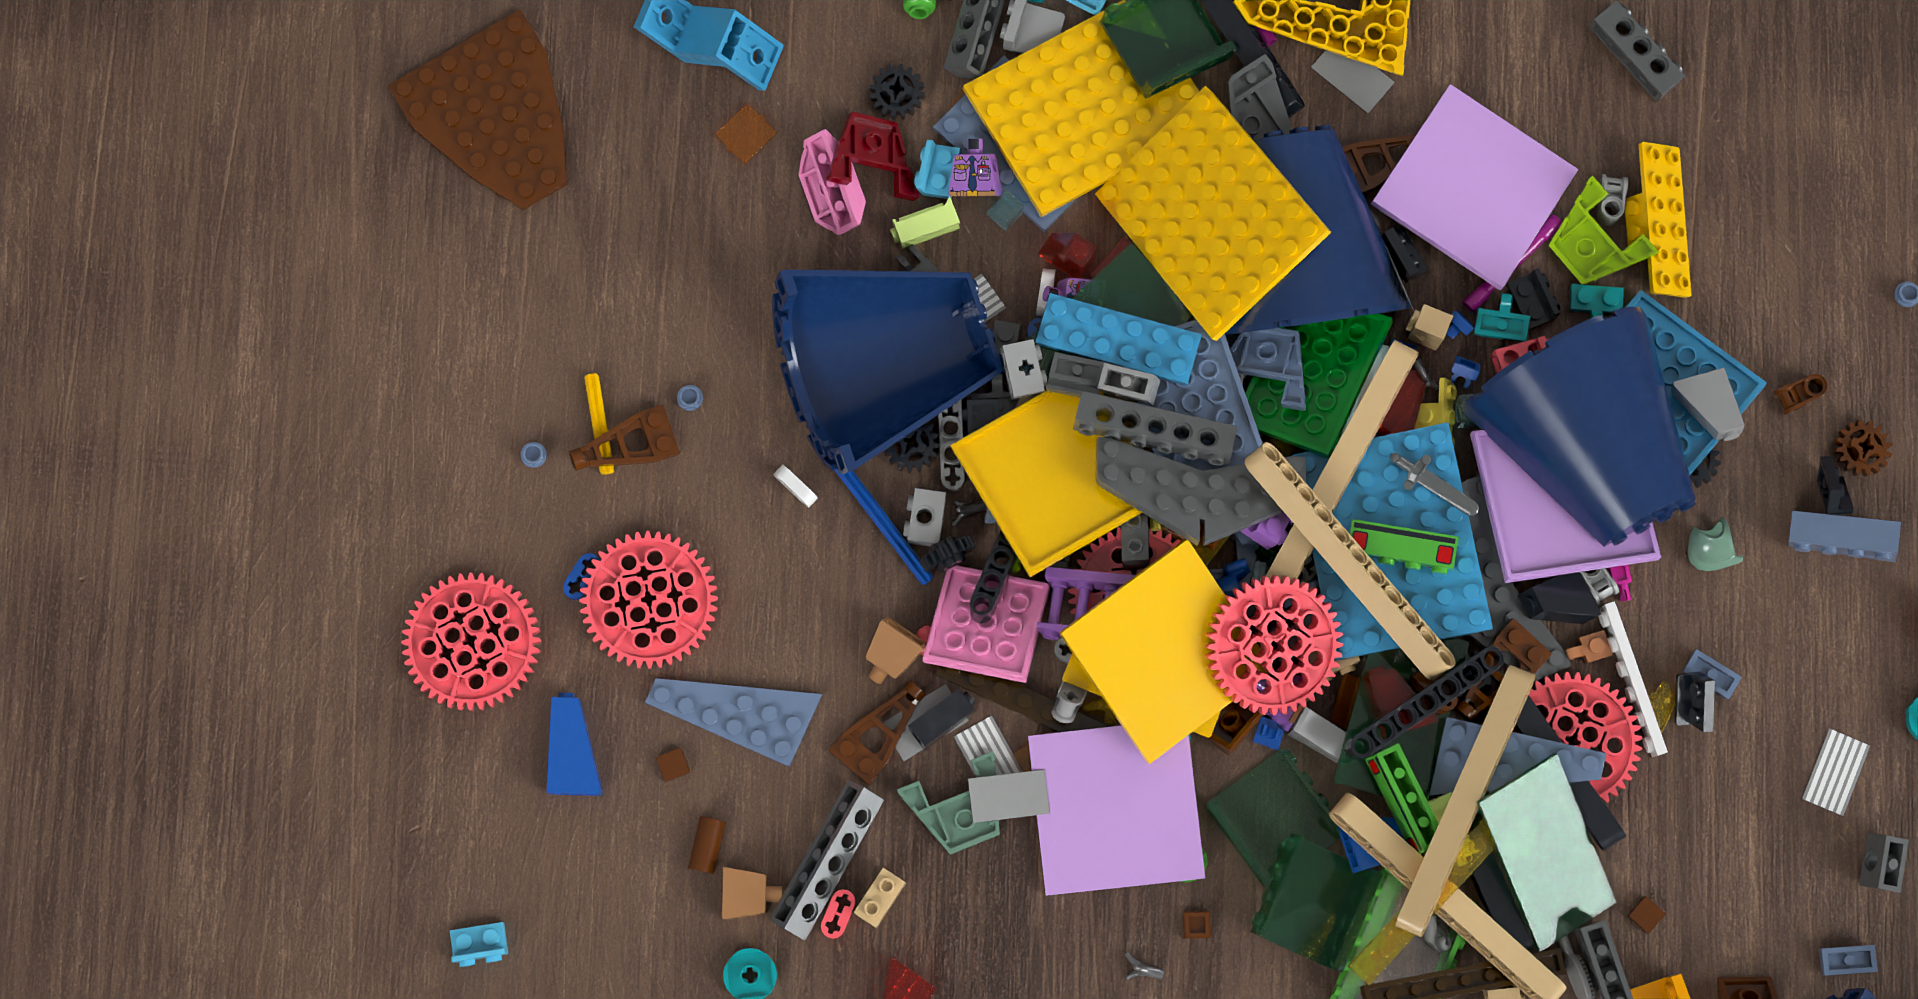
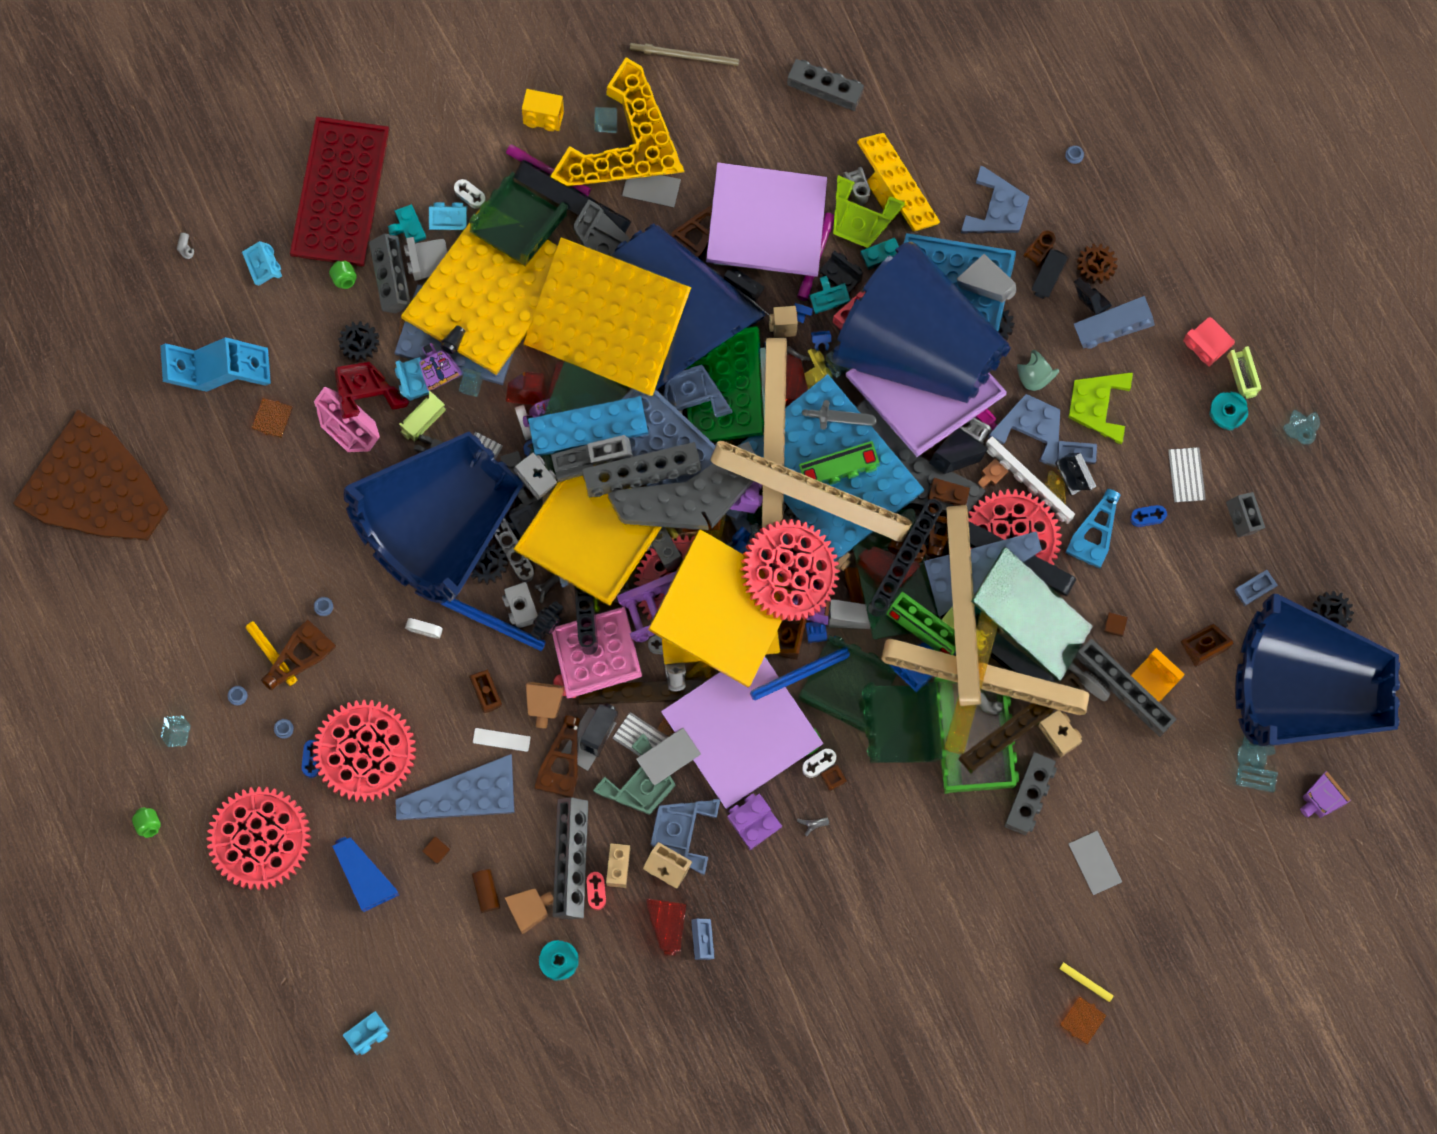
camera: 30 degrees left, 5 degrees down
(349, 554) = (146, 822): none -> bright green head
(438, 460) = (175, 731): none -> clear light blue panel
(567, 523) = (283, 728): none -> sand blue plate
(820, 669) = (501, 739): none -> white sticker
(830, 601) = (485, 691): none -> reddish brown brick
(939, 928) = (667, 865): none -> tan brick
(971, 889) = (675, 828): none -> sand blue wing
(1009, 148) = (452, 341): none -> black cone
(1072, 927) = (753, 820): none -> medium lavender plate
(1189, 904) = (821, 766): none -> white beam
(1215, 777) = (799, 674): none -> blue axle
(1659, 804) = (1086, 550): none -> dark azure plate
(1680, 608) = (1035, 420): none -> sand blue wing
(1761, 794) = (1149, 520): none -> blue beam
(1763, 619) = (1091, 402): none -> lime wing
(1782, 320) = (1005, 208): none -> sand blue wing
(1796, 431) = (1050, 273): none -> black slope

